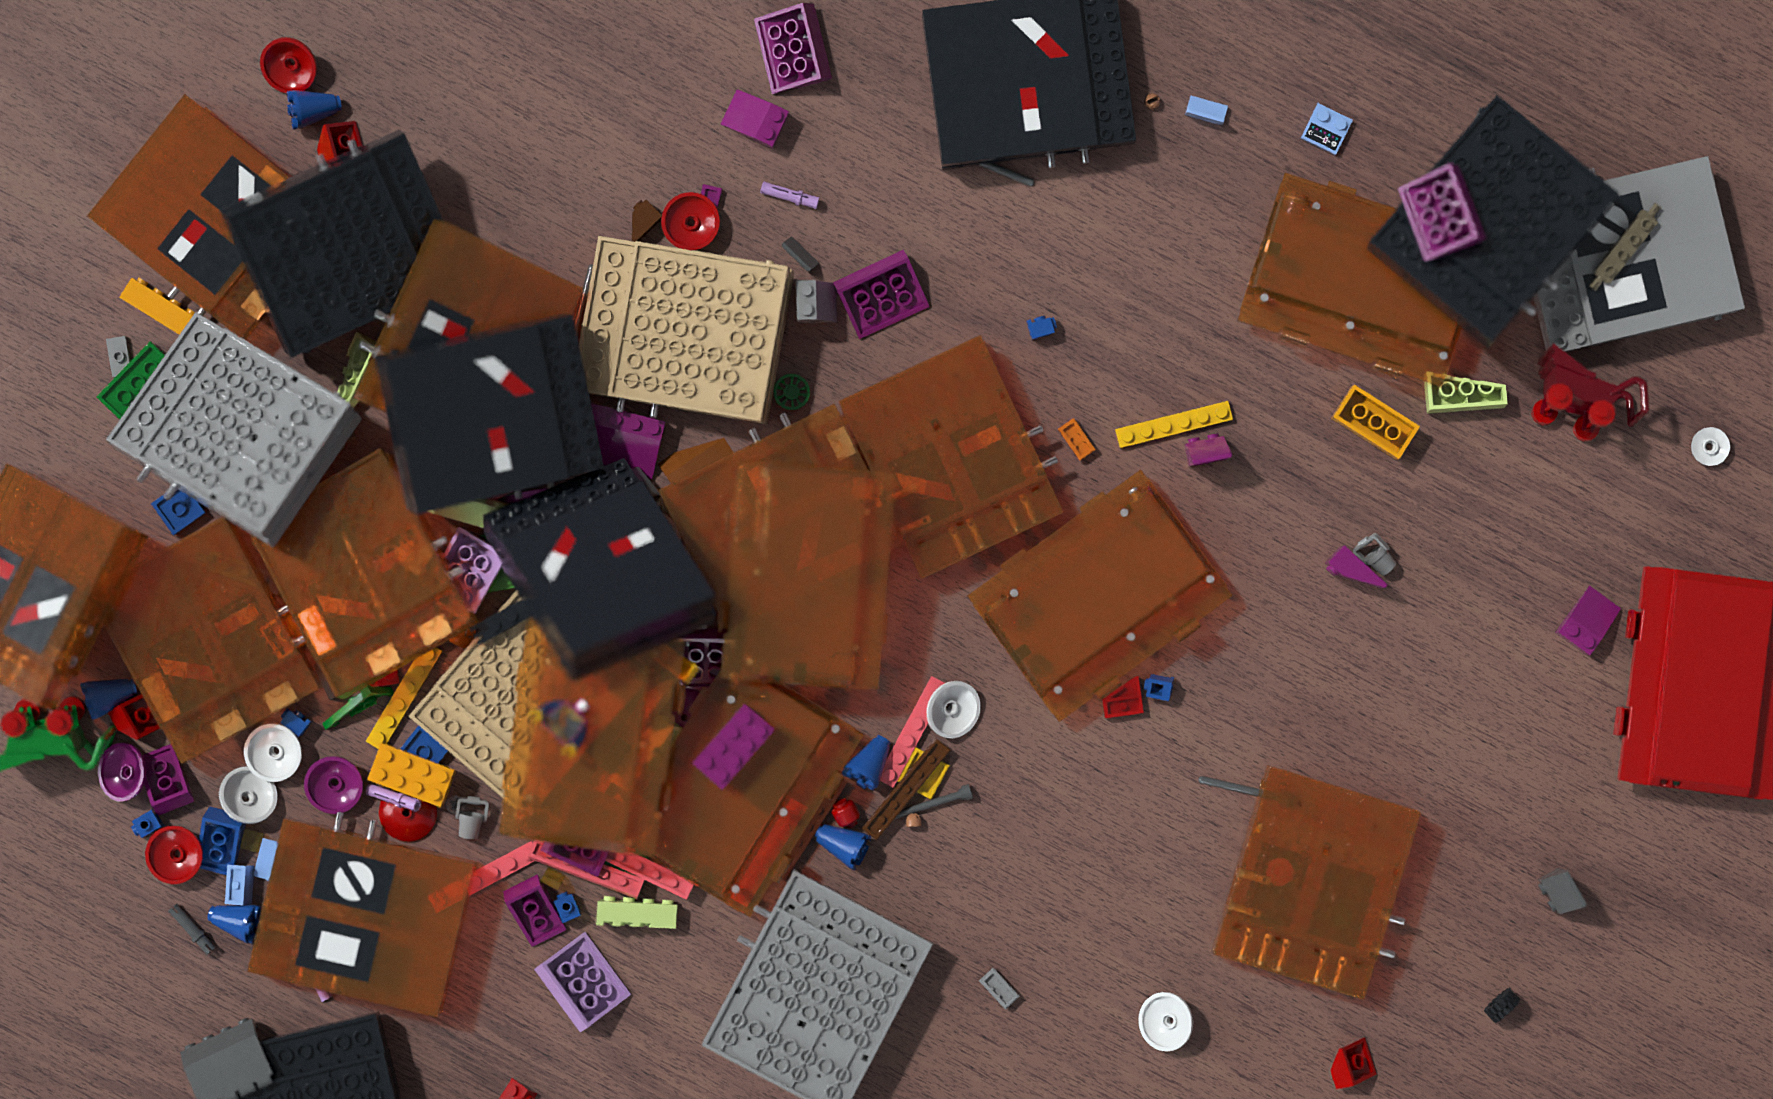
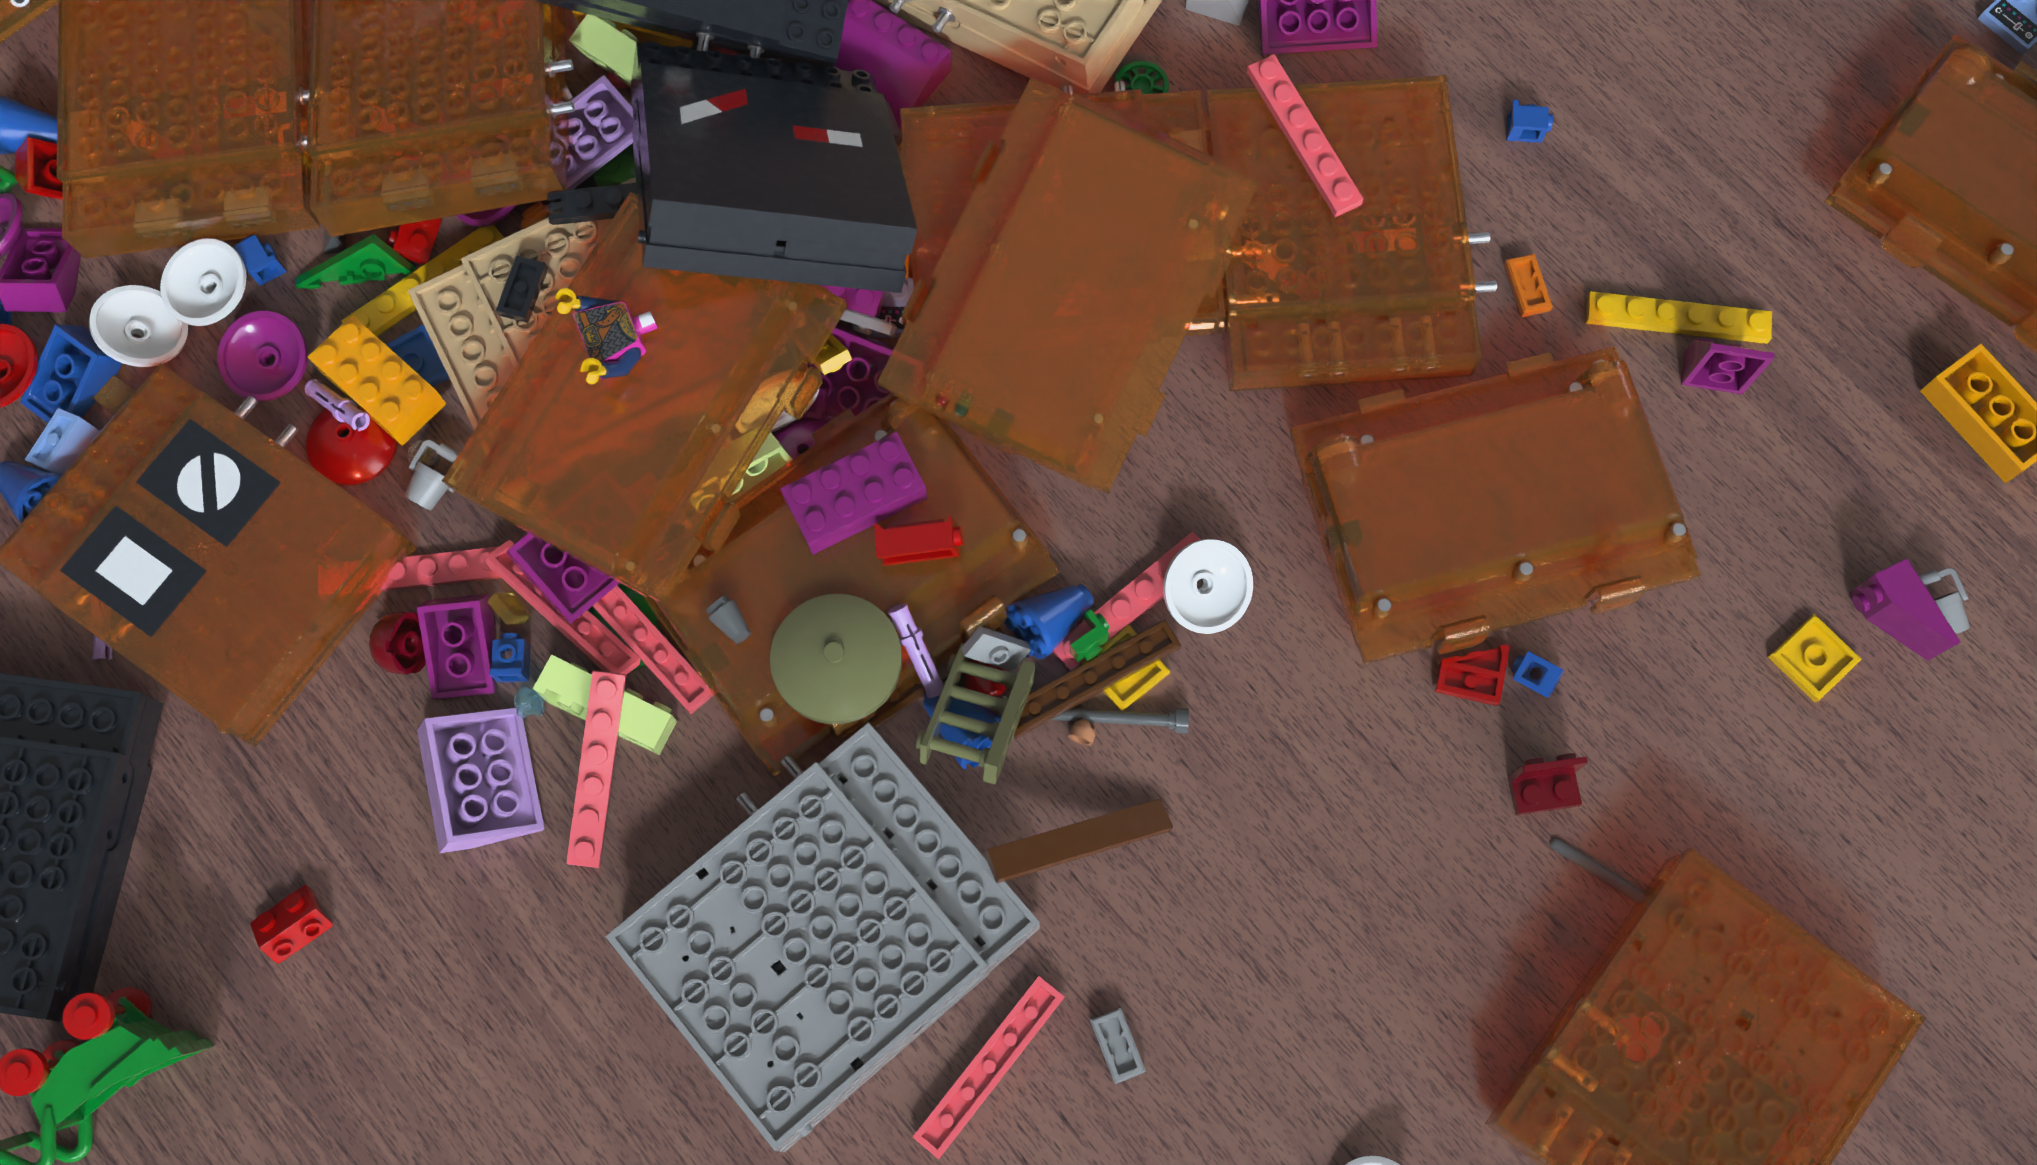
camera: 25 degrees right, 15 degrees down
(482, 694) = (522, 289): none -> black plate
(500, 924) = (398, 643): none -> dark red cylinder
(589, 927) = (523, 703): none -> clear light blue plate
(649, 952) = (596, 769): none -> coral plate
(693, 846) = (729, 619): none -> dark grey cone
(762, 844) = (836, 658): none -> olive dish
(781, 761) = (918, 541): none -> red window
(818, 830) = (911, 638): none -> lavender pin
(847, 797) = (996, 649): none -> light grey plate
(869, 848) = (999, 733): none -> olive fence
(899, 771) = (1089, 644): none -> green bracket
(908, 411) = (1305, 135): none -> coral plate
(933, 1026) = (988, 1067): none -> coral plate
(936, 887) = (1077, 840): none -> reddish brown tile
(1185, 752) = (1546, 785): none -> dark red bracket
(1314, 613) = (1814, 658): none -> yellow tile

